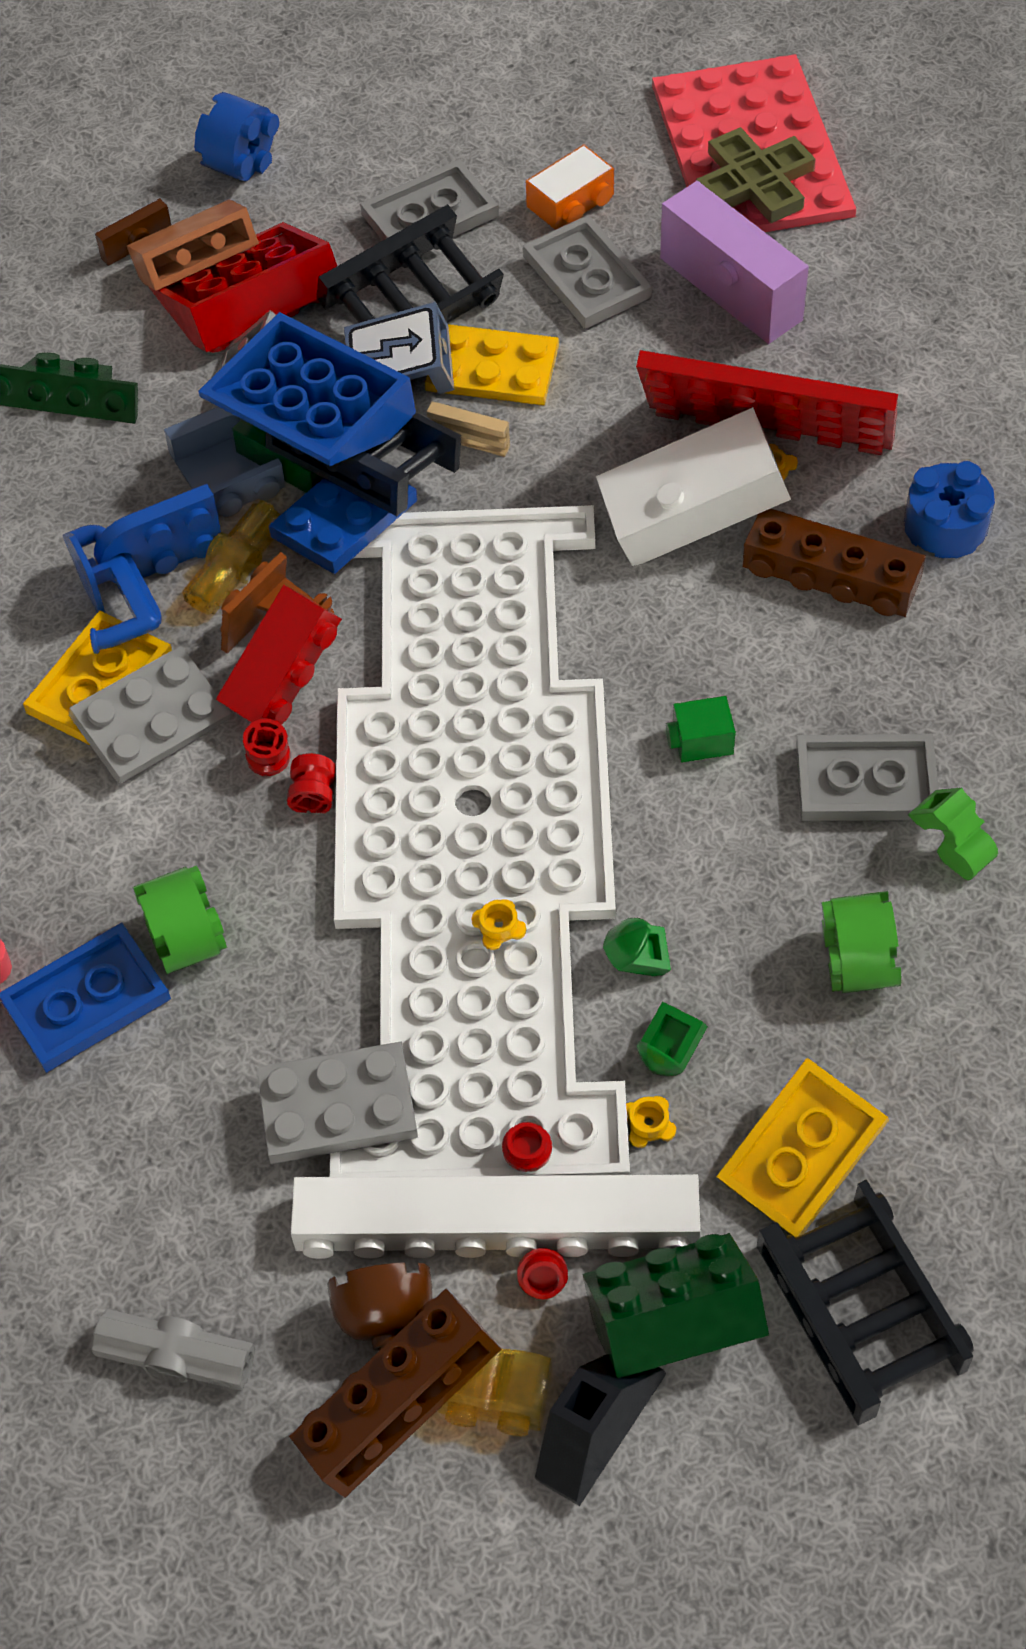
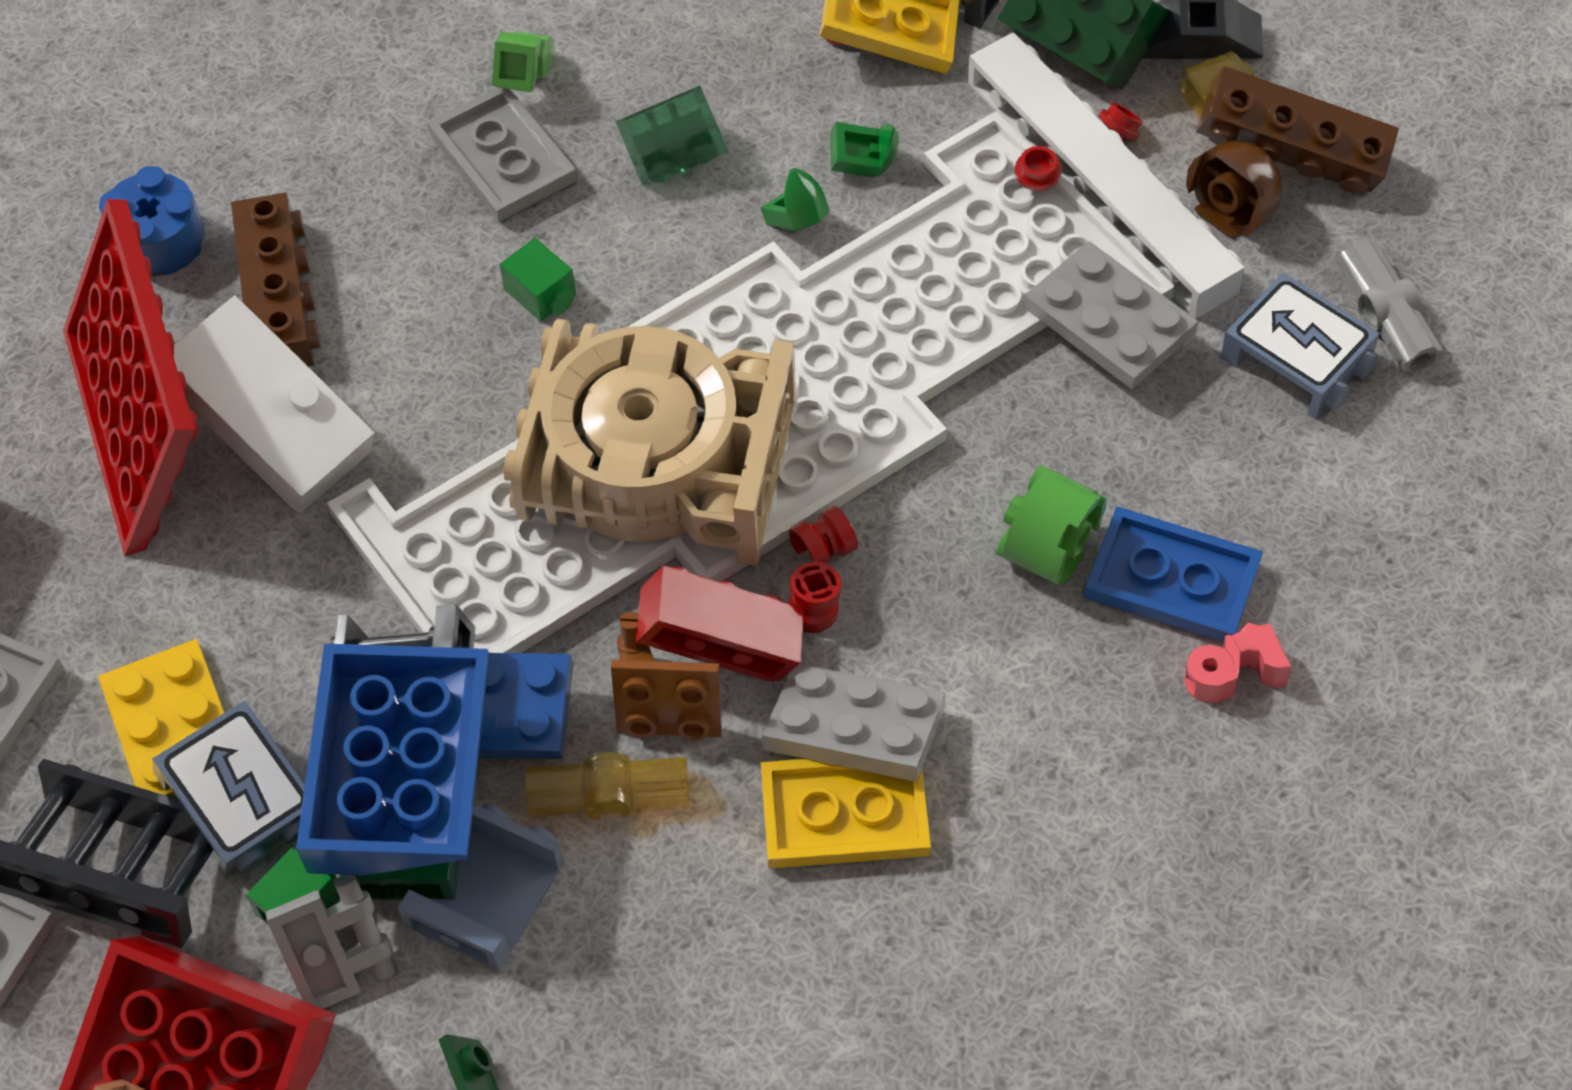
camera: 125 degrees left, 0 degrees up
(138, 547) = (690, 866): blue plate -> none
(190, 1235) = (1304, 342): none -> panel
(470, 719) = (707, 487): none -> tan brick
(475, 429) = (289, 674): tan tile -> none
(498, 911) = (858, 288): yellow plate -> none
(655, 1109) = (935, 122): yellow plate -> none
(783, 895) = (672, 136): none -> clear green brick
(861, 942) = (681, 56): bright green brick -> none

